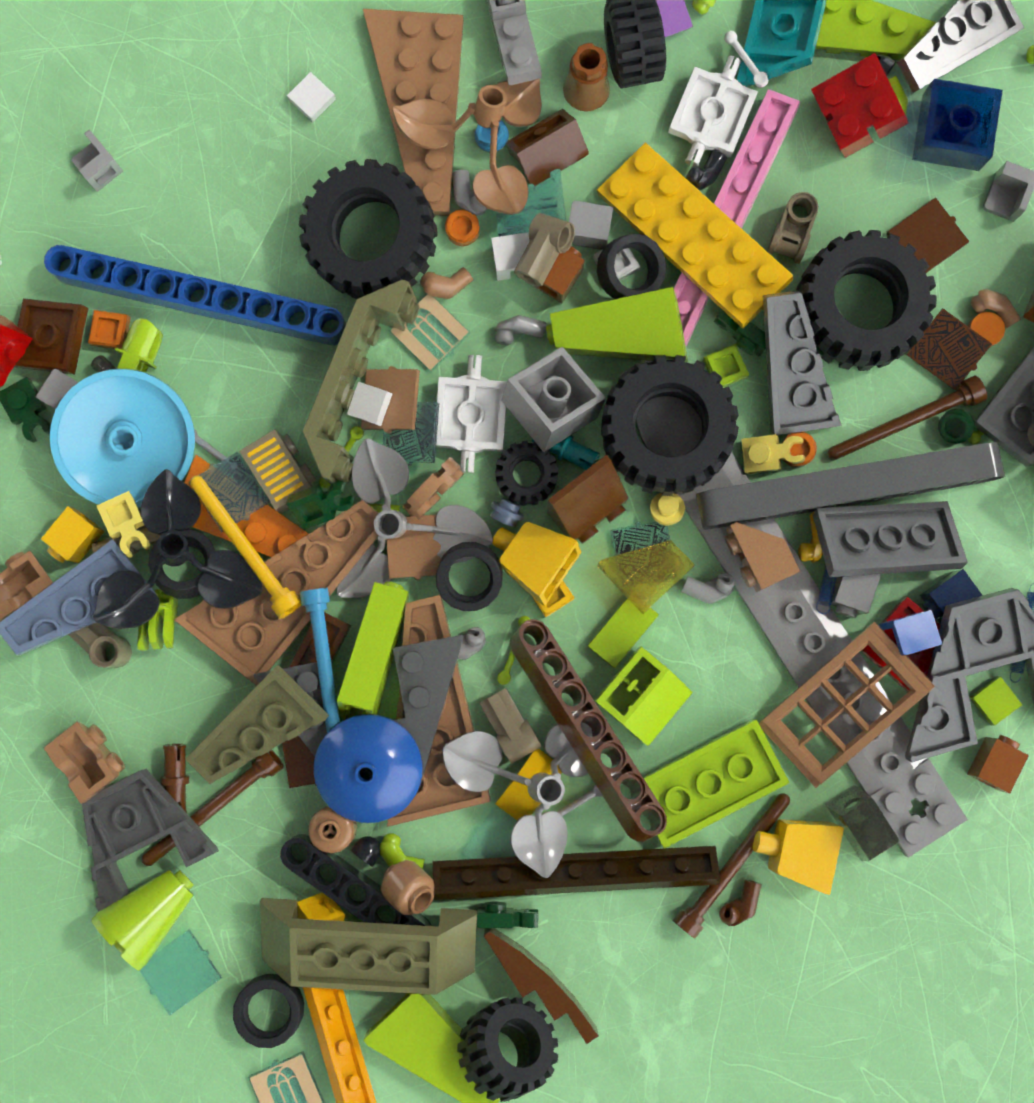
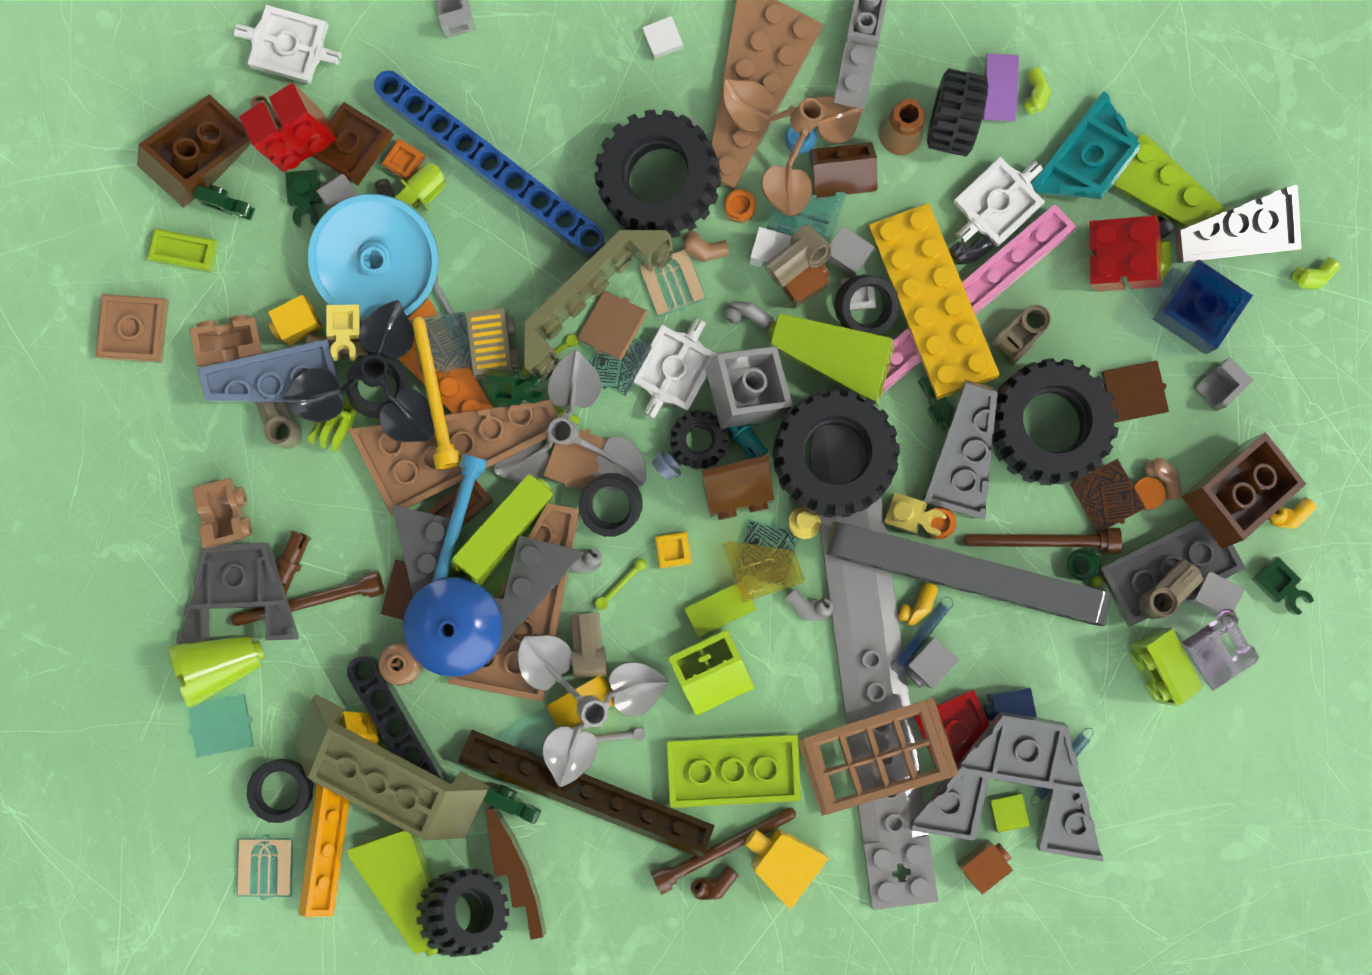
camera: 25 degrees right, 0 degrees up
(262, 720) = (384, 547): olive wing -> none
(367, 849) = (422, 695): black hinge -> none
(369, 403) = (593, 321): white tile -> none
(393, 854) = (442, 713): lime arm -> none
(408, 888) = (440, 741): medium nougat head -> none
(426, 495) = (613, 417): medium nougat plate -> none
(464, 195) = (754, 178): light grey arm -> none
(536, 558) = (674, 515): yellow torso -> none
(603, 737) = (642, 692): reddish brown beam -> none
(727, 364) = (910, 425): lime tile -> none
(760, 78) = (1050, 192): white hinge -> none
(763, 556) = (865, 599): medium nougat slope -> none
(862, 823) = (846, 862): clear smoke torso -> none
(889, 538) = (979, 633): dark grey plate -> none
(914, 632) = (962, 721): panel -> none

